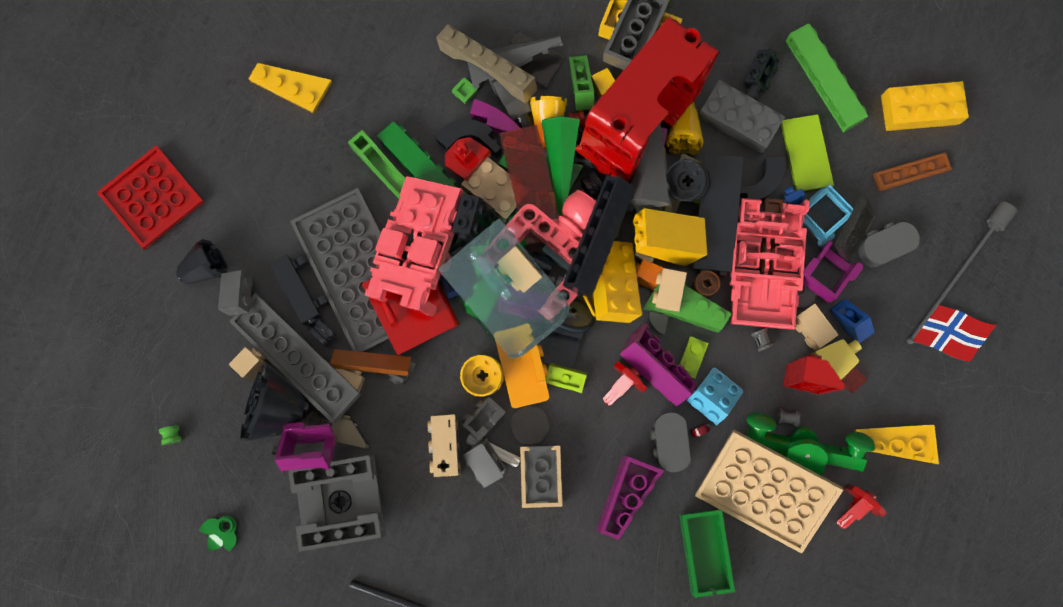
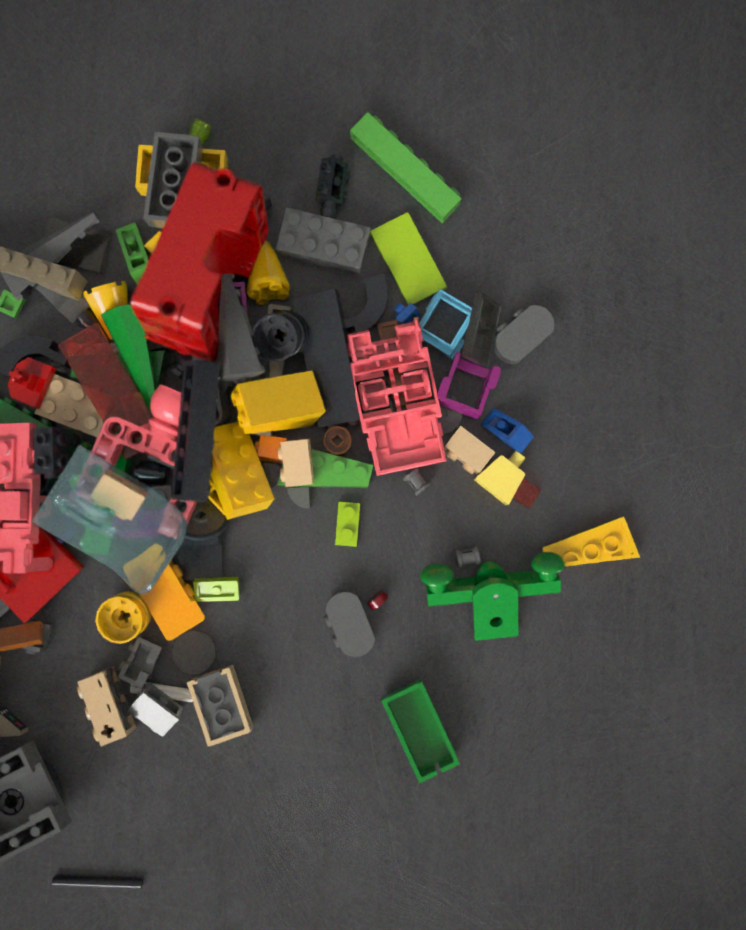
camera: 20 degrees left, 5 degrees up
(492, 117) = (51, 326): magenta slope -> none
(626, 495) = (319, 689): magenta wedge -> none
(628, 378) = (283, 570): piece -> none
(657, 365) = (310, 546): magenta wedge -> none
(715, 396) = (384, 557): medium azure bracket -> none
(768, 491) = (466, 645): tan plate -> none
(812, 376) = (474, 507): red slope -> none
(860, 506) = (568, 630): red piece -> none
(912, 171) = (528, 244): dark orange tile -> none
(924, 106) = (520, 167): yellow brick -> none
(951, 329) = (619, 407): flag -> none

